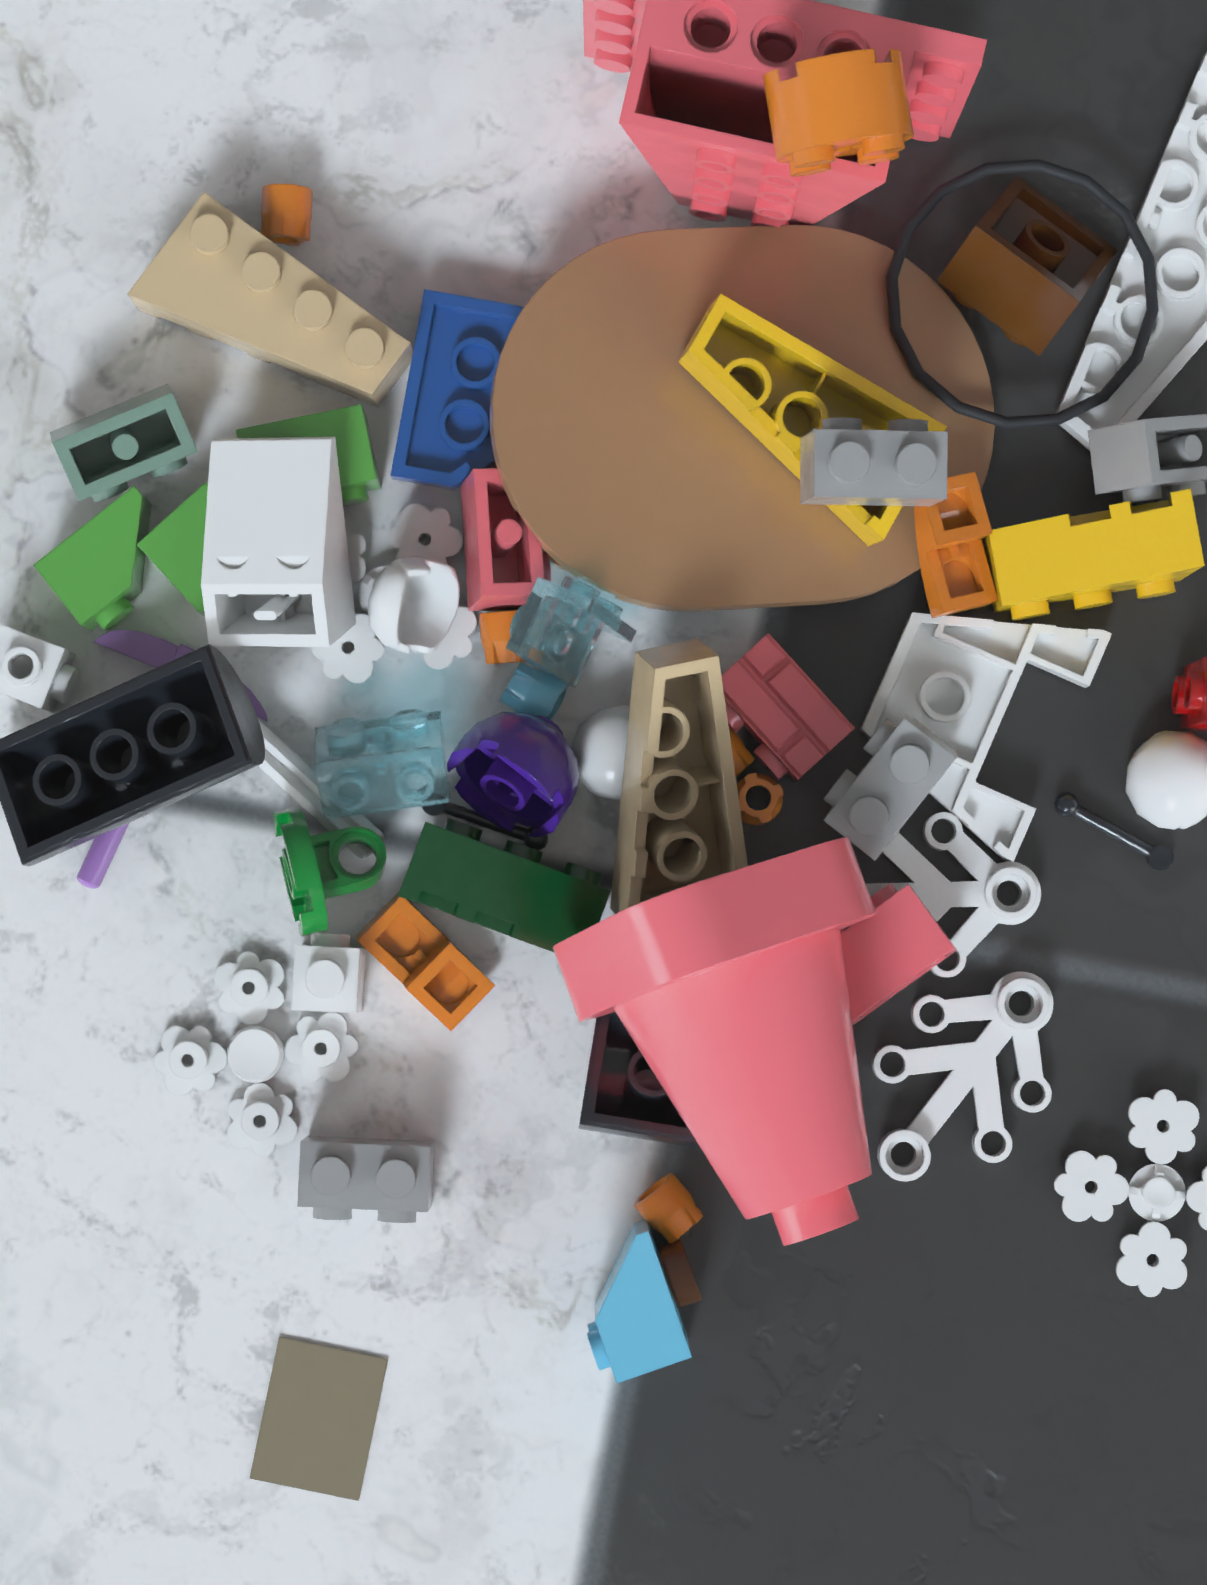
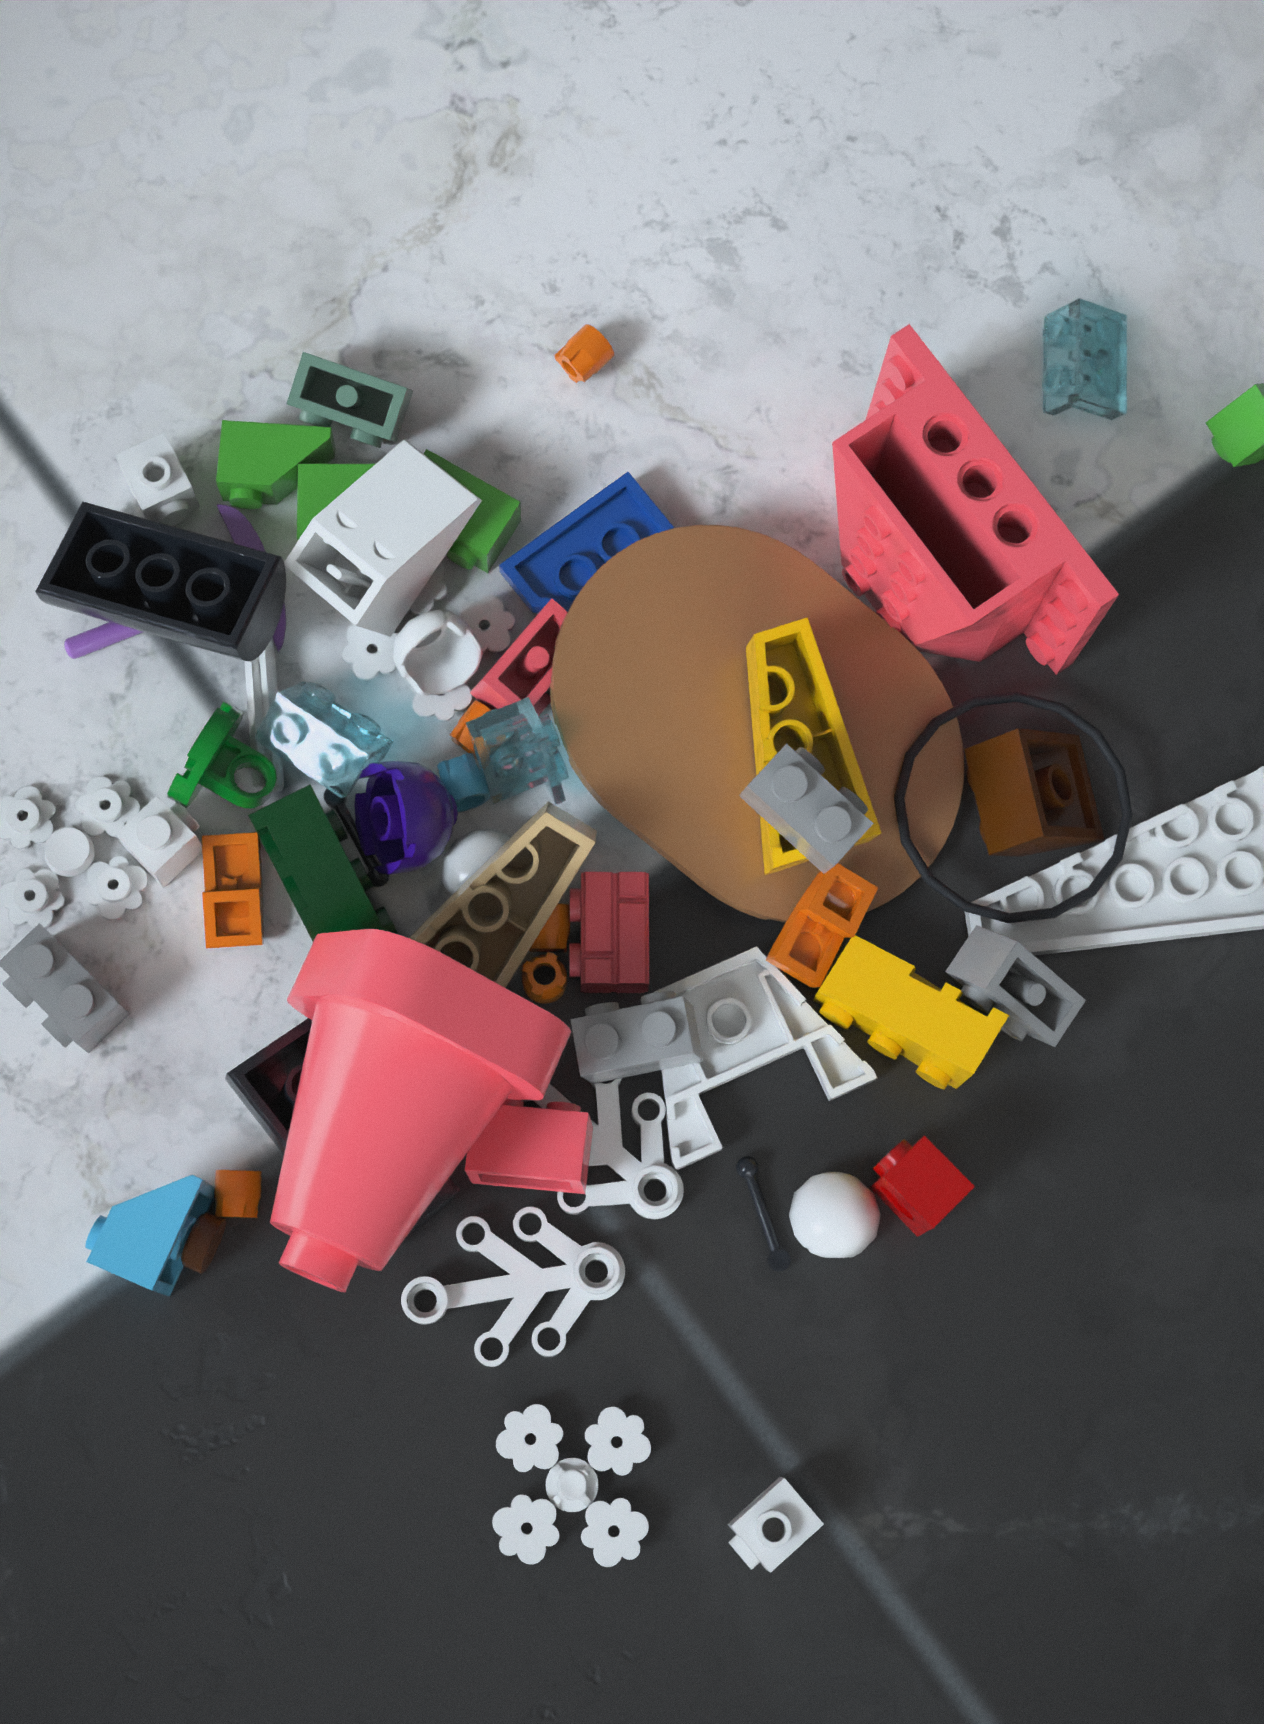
camera: 35 degrees right, 10 degrees down
(256, 297) = (516, 382): tan wedge -> none
(838, 110) = (977, 544): orange brick -> none

